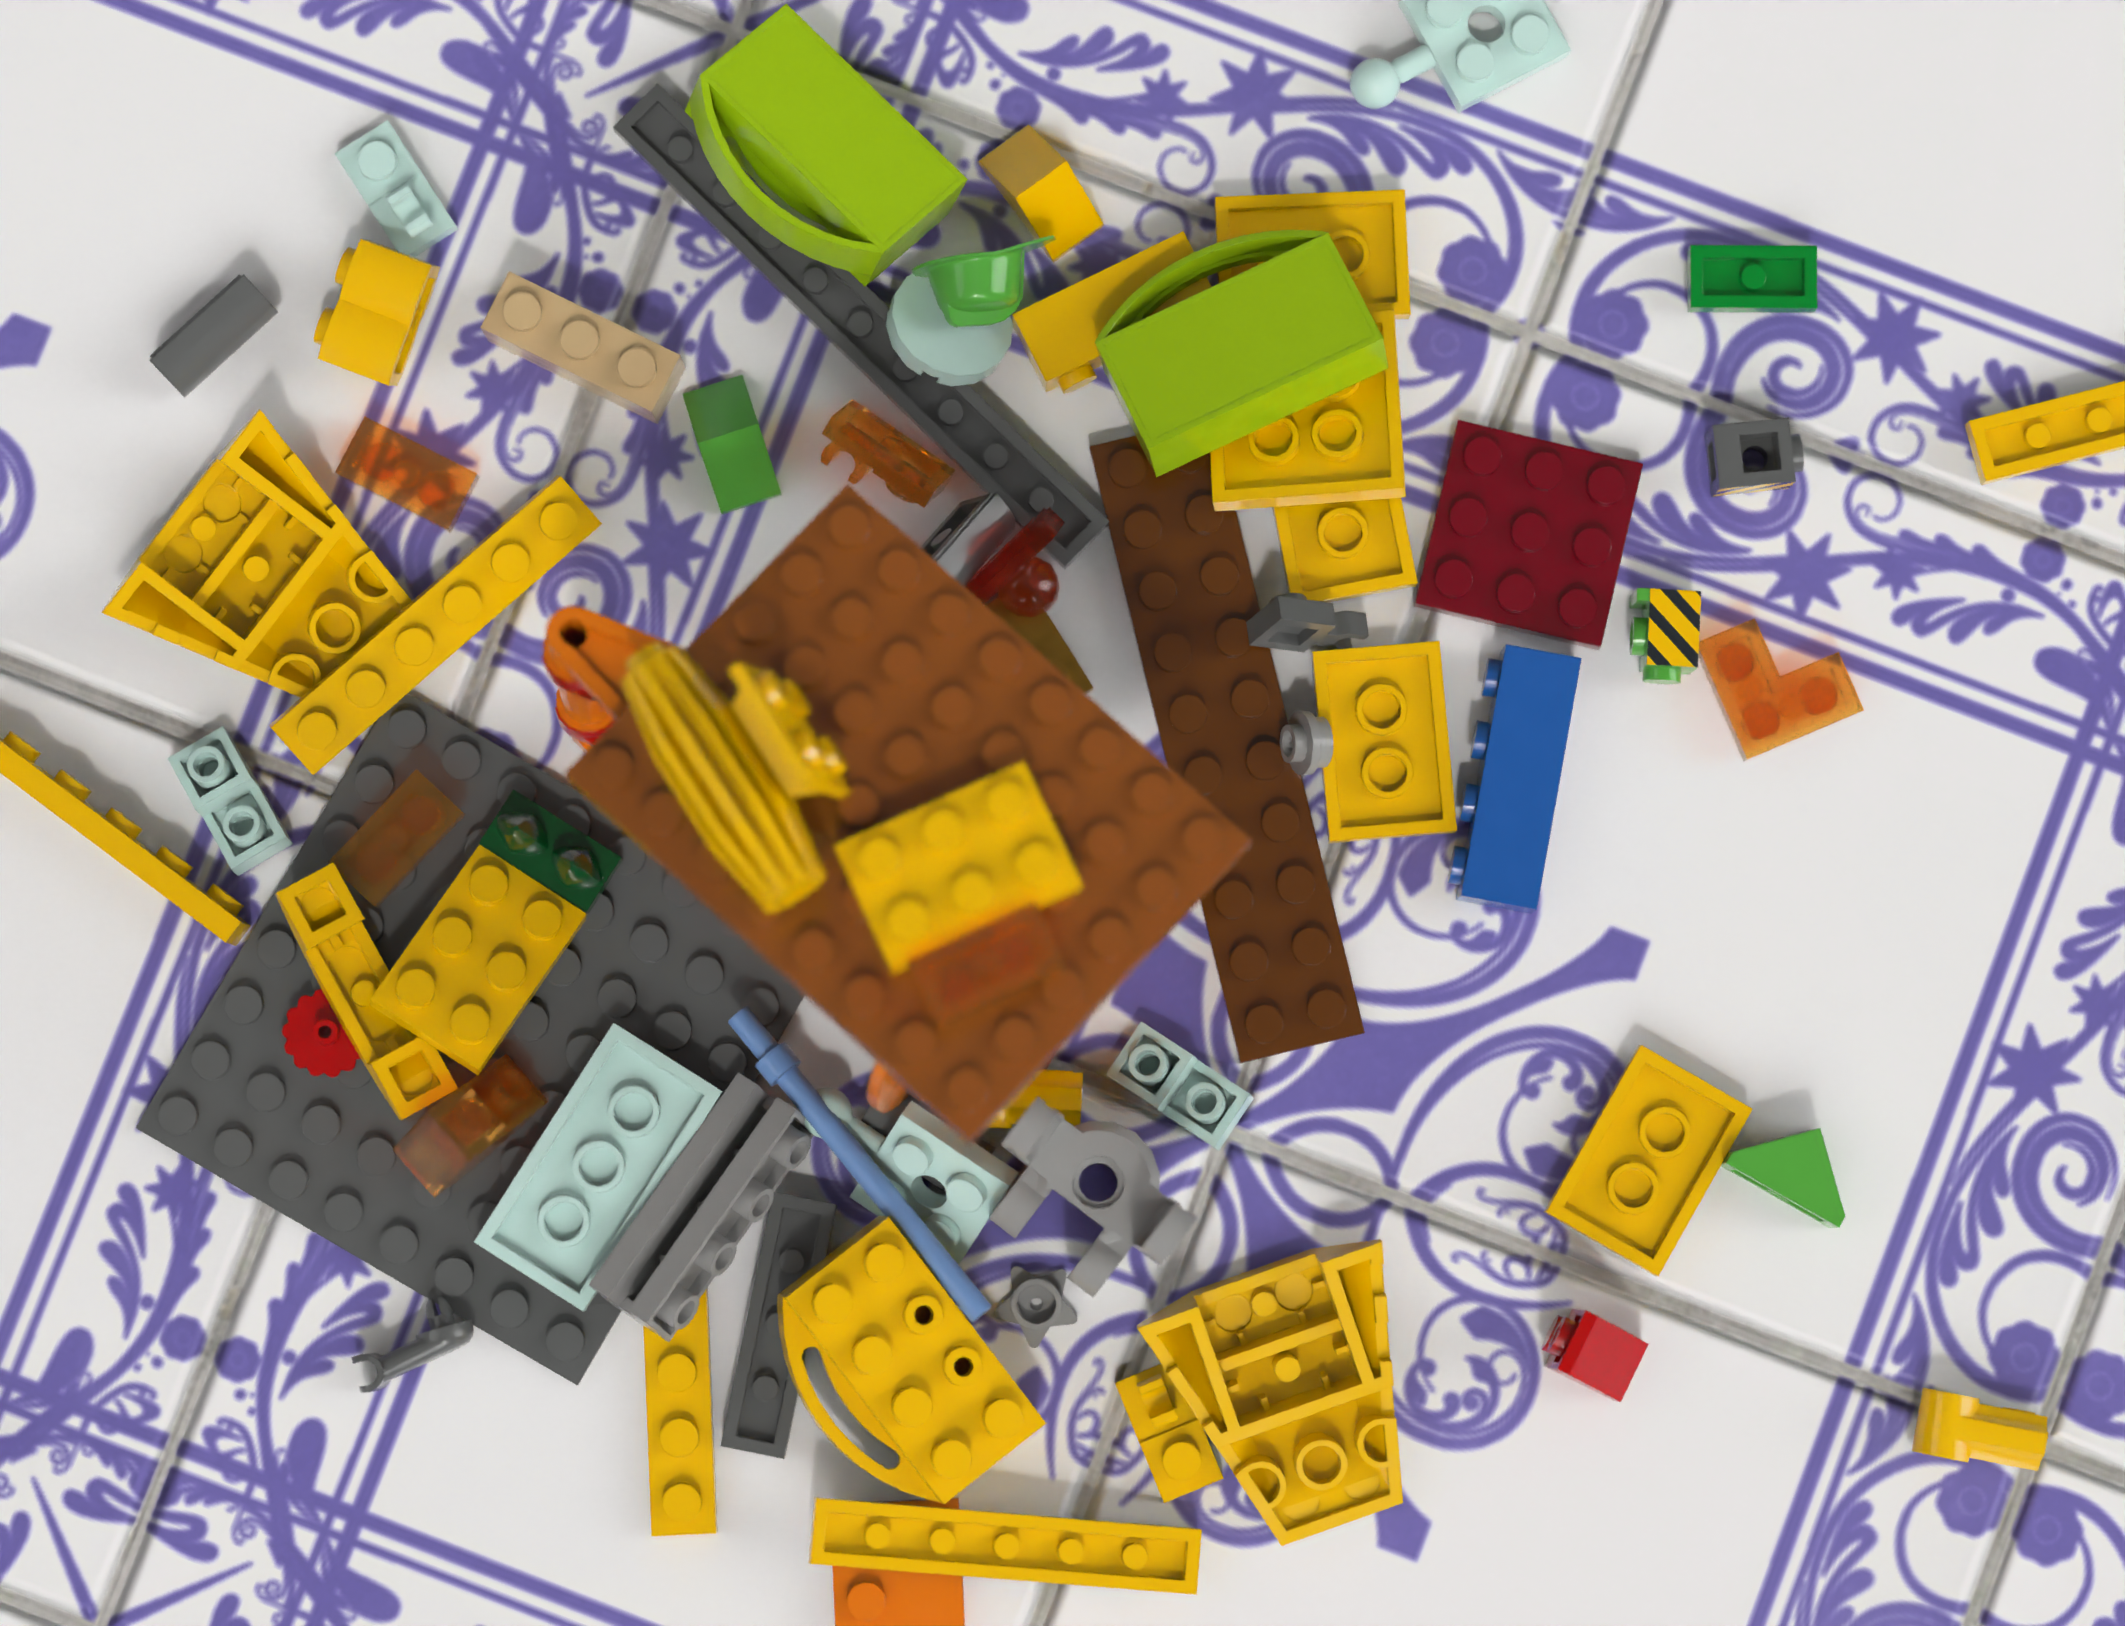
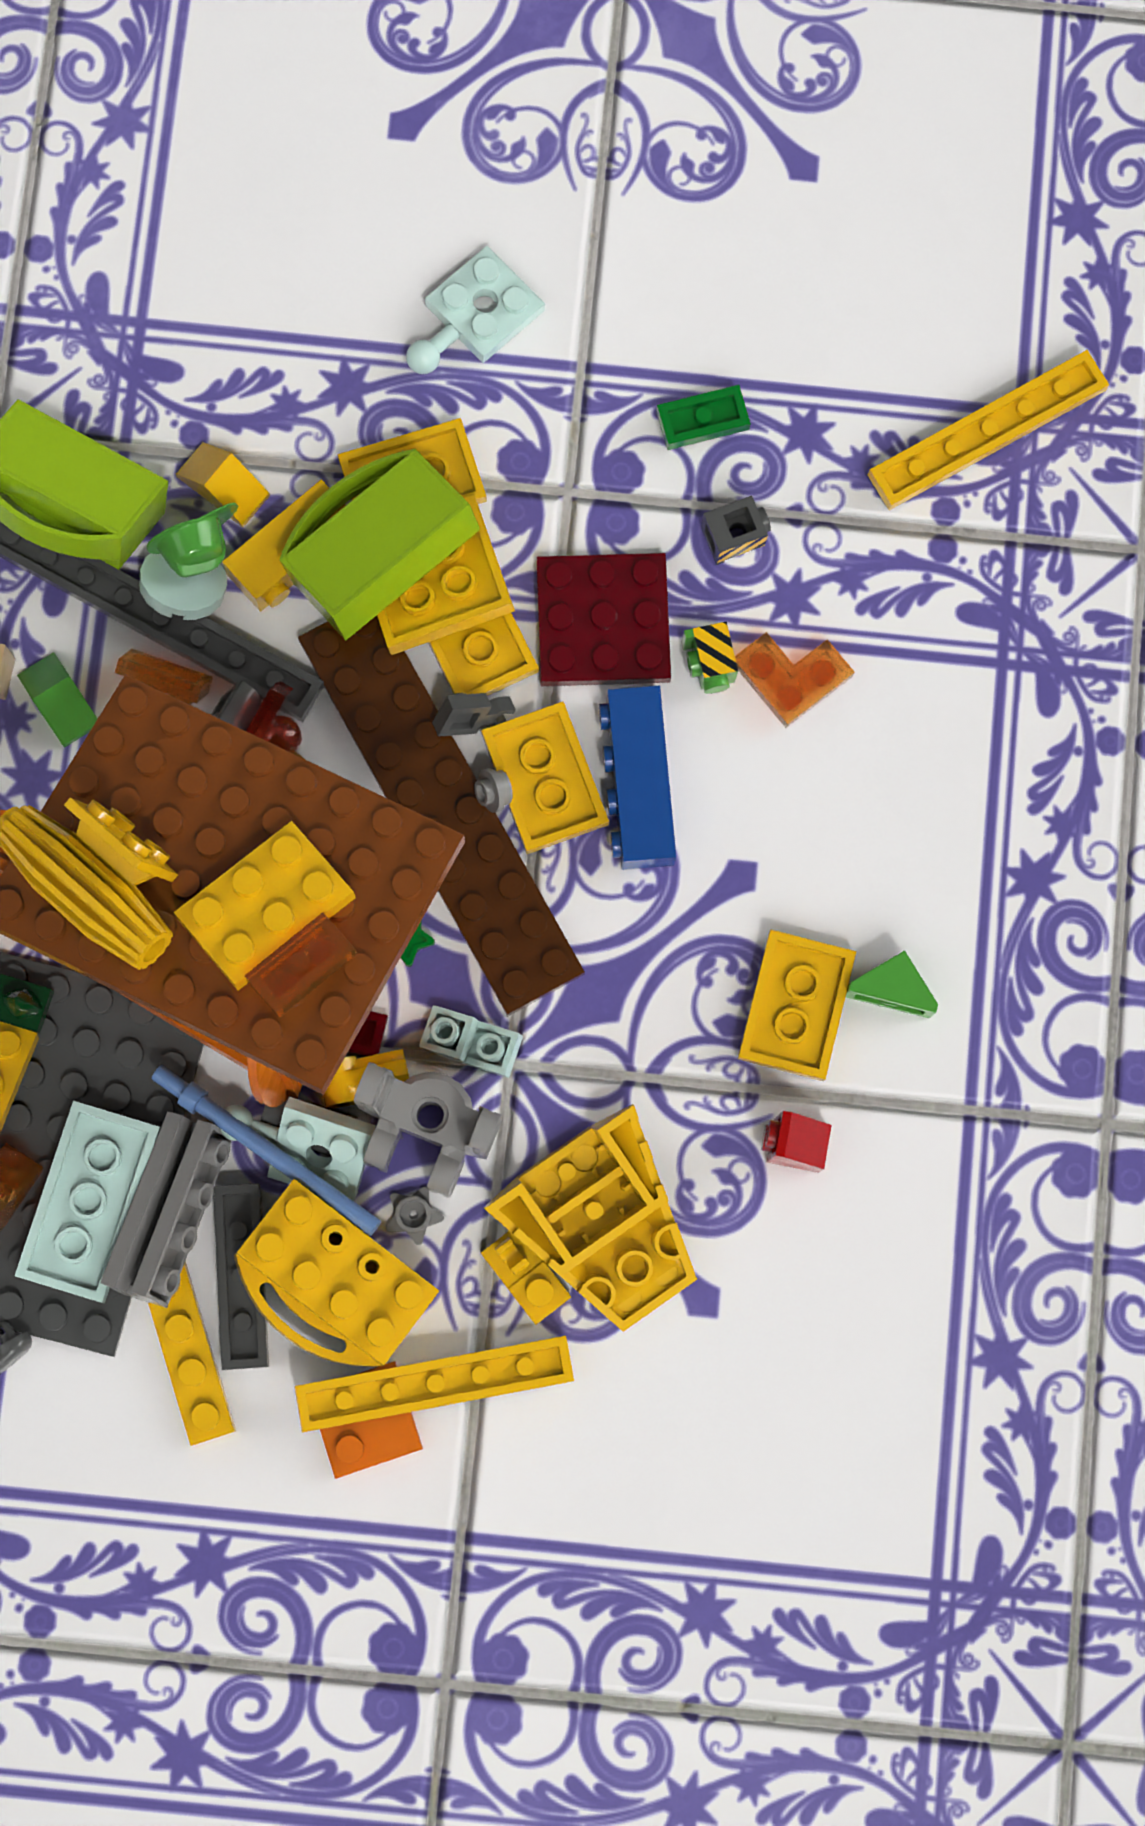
camera: 20 degrees left, 5 degrees down
(1963, 1429) = (1055, 1125): yellow piece -> none

